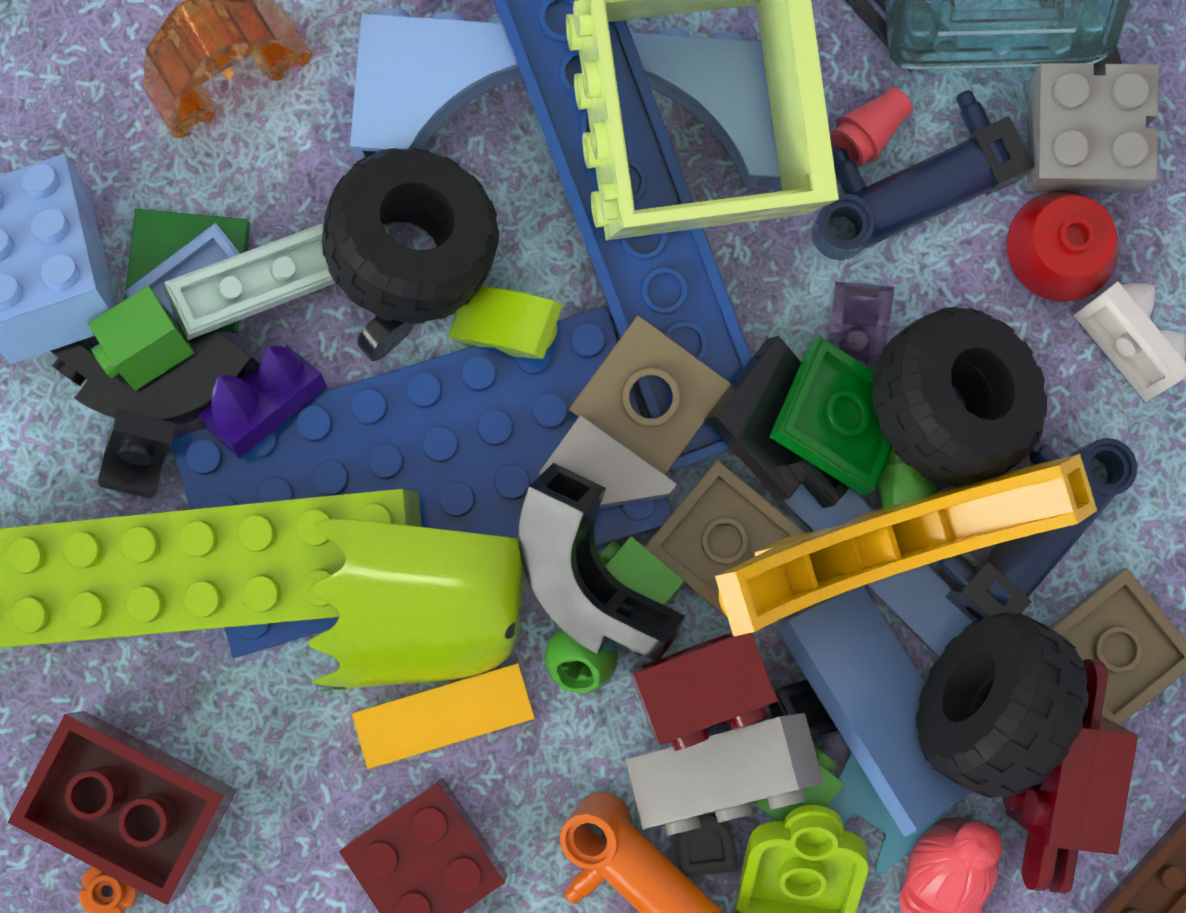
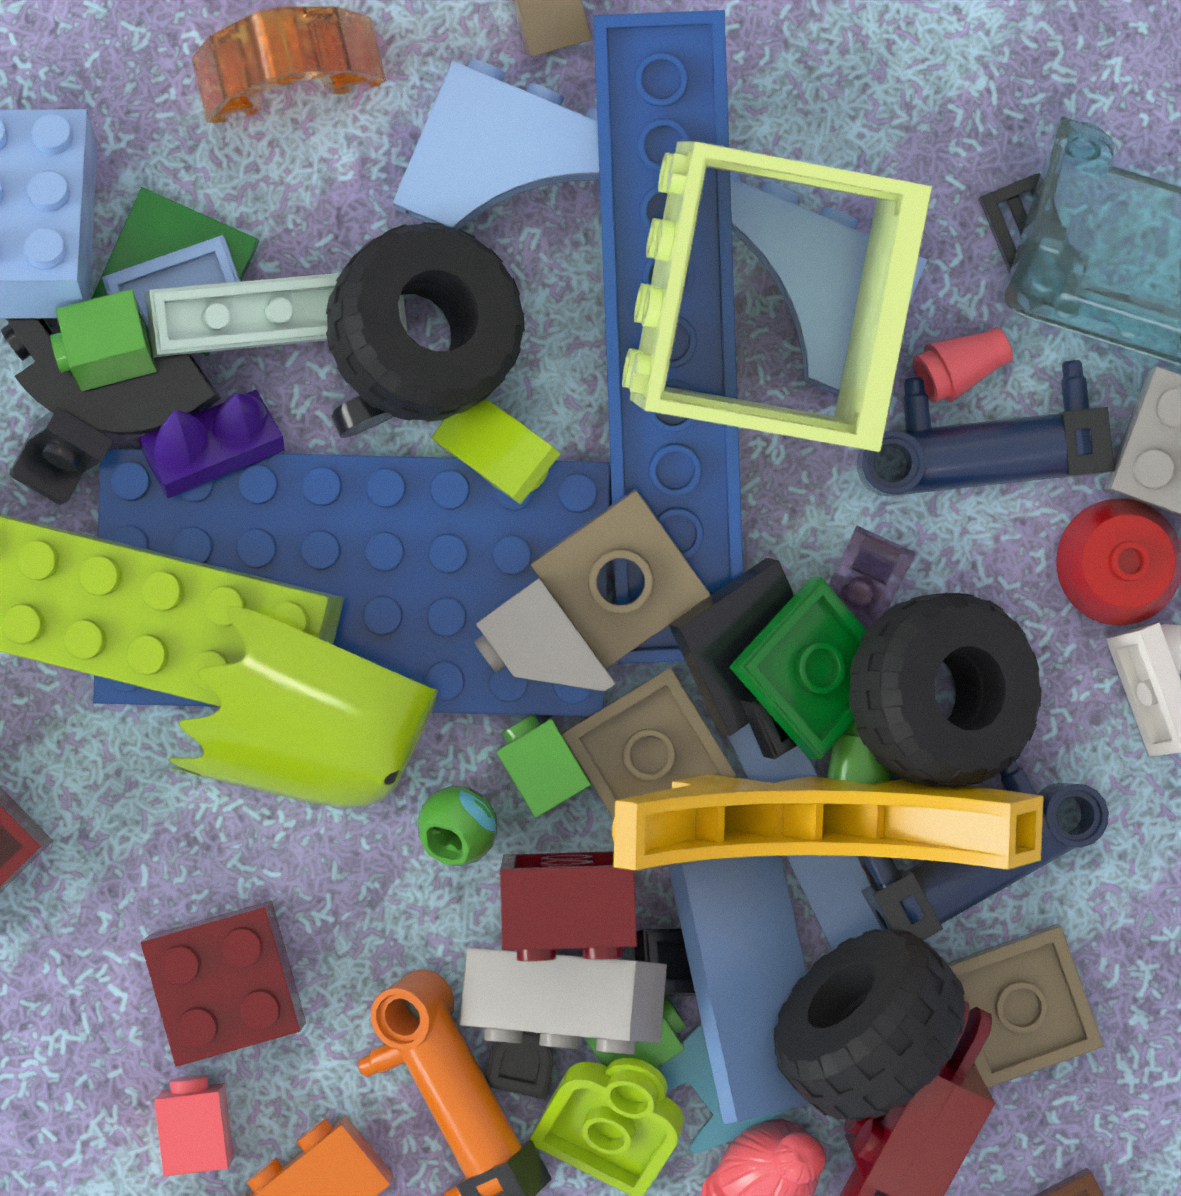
camera: 25 degrees right, 5 degrees up
(443, 716) = (293, 837): yellow tile -> none
(571, 578) = (474, 743): arch -> none

